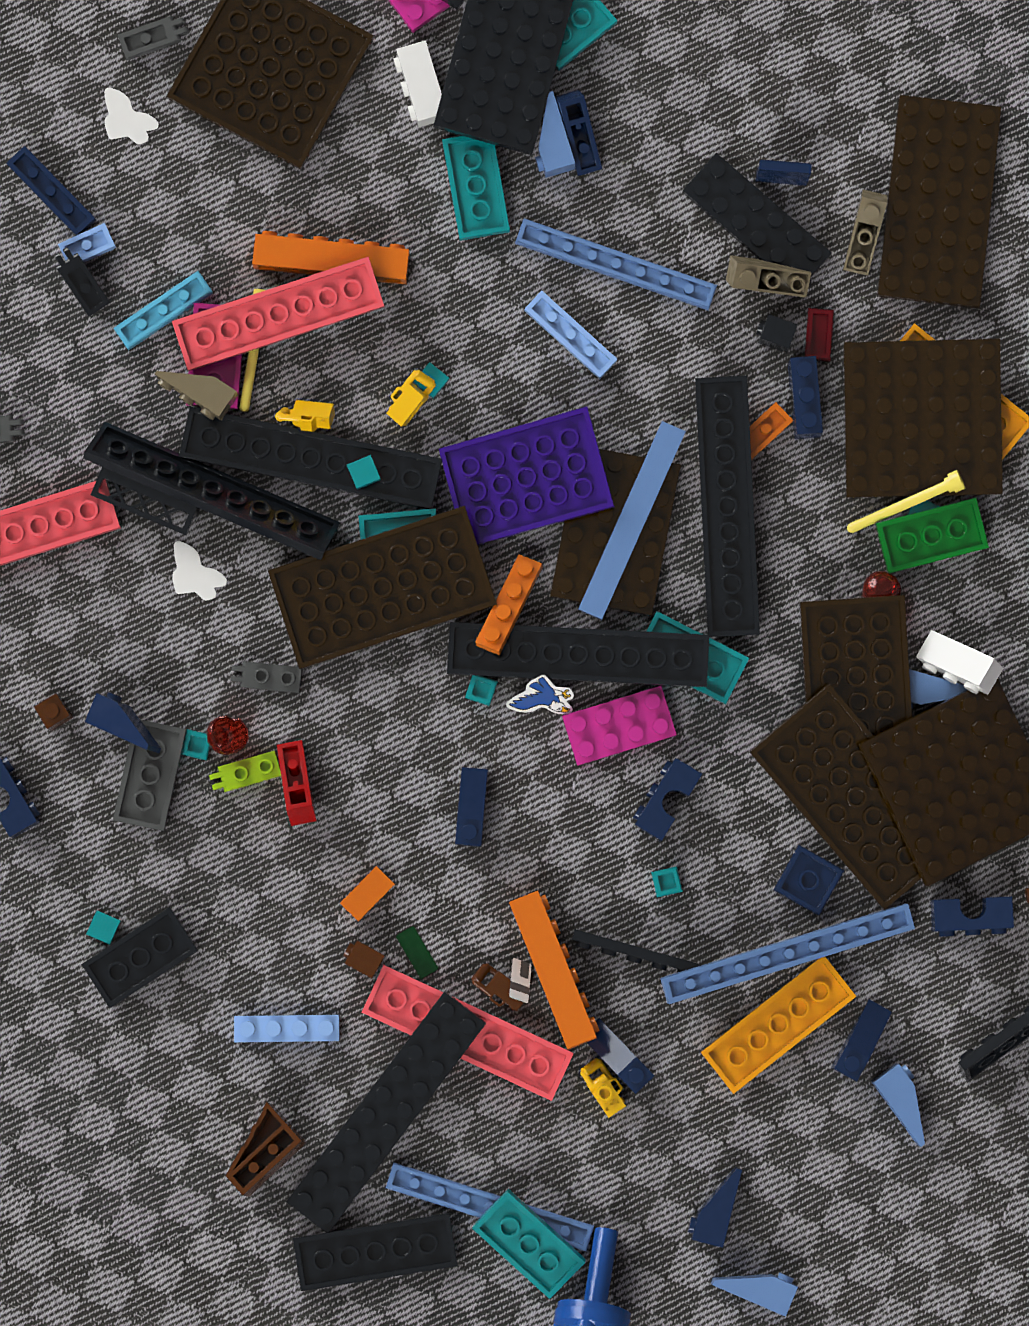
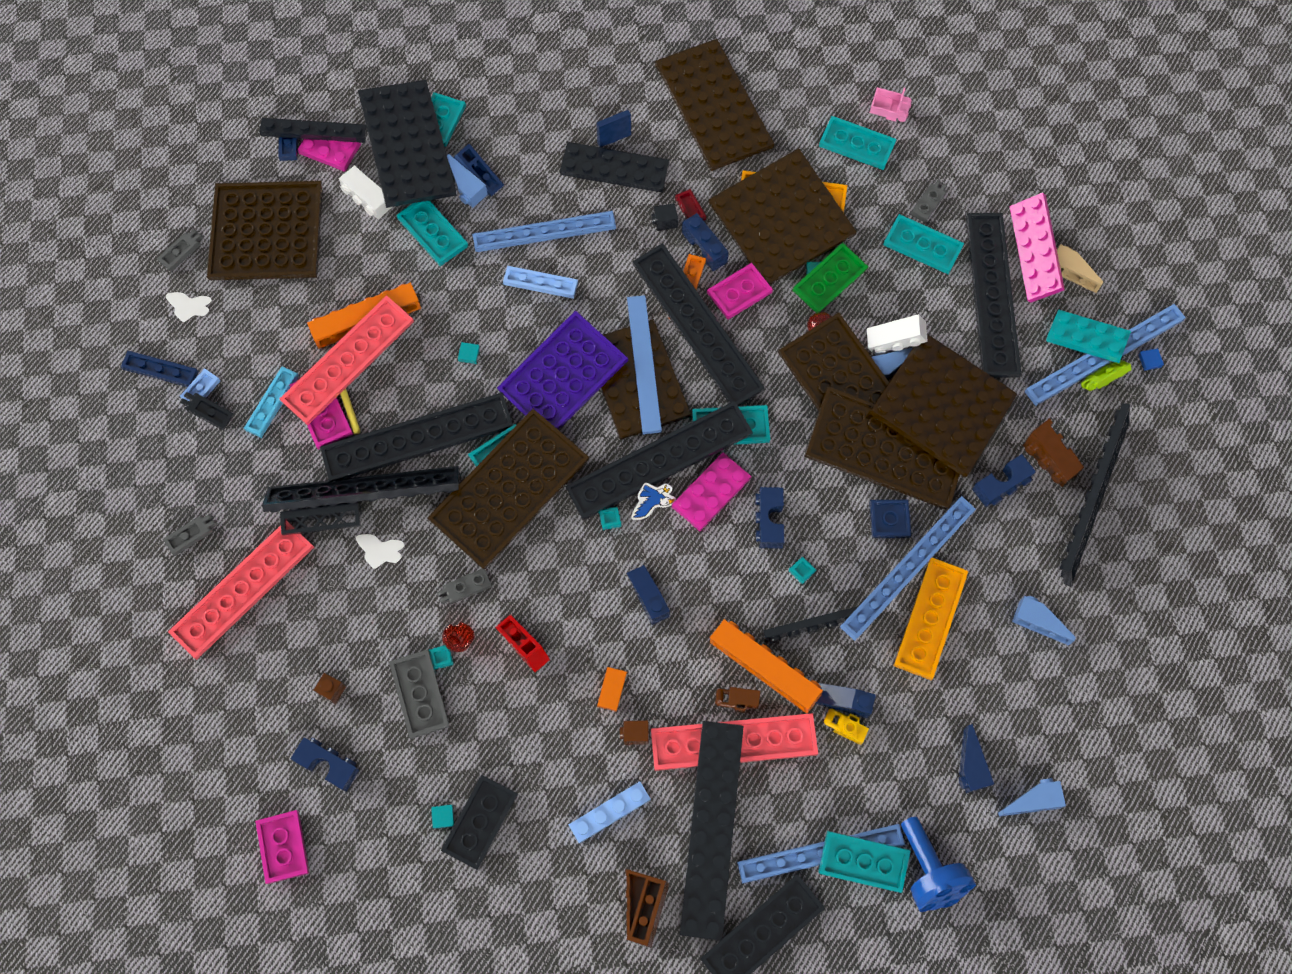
camera: 30 degrees left, 15 degrees down
(120, 720) = (375, 668): dark blue slope -> none
(205, 391) = (325, 430): dark tan slope -> none
(247, 772) = (485, 656): lime hinge -> none
(308, 415) = (401, 411): yellow piece -> none
(363, 472) = (456, 425): teal tile -> none
(411, 398) = (461, 368): yellow piece -> none
(417, 952) = (668, 709): dark green sticker -> none
(509, 604) = (597, 453): orange plate -> none
(520, 980) = (748, 685): white sticker -> none
(767, 277) = (639, 188): dark tan slope -> none
(809, 487) = (739, 291): none -> dark pink plate
(861, 1040) = (990, 599): dark blue slope -> none
(865, 232) = (682, 138): dark tan slope -> none
(951, 483) = (823, 238): light yellow piece -> none

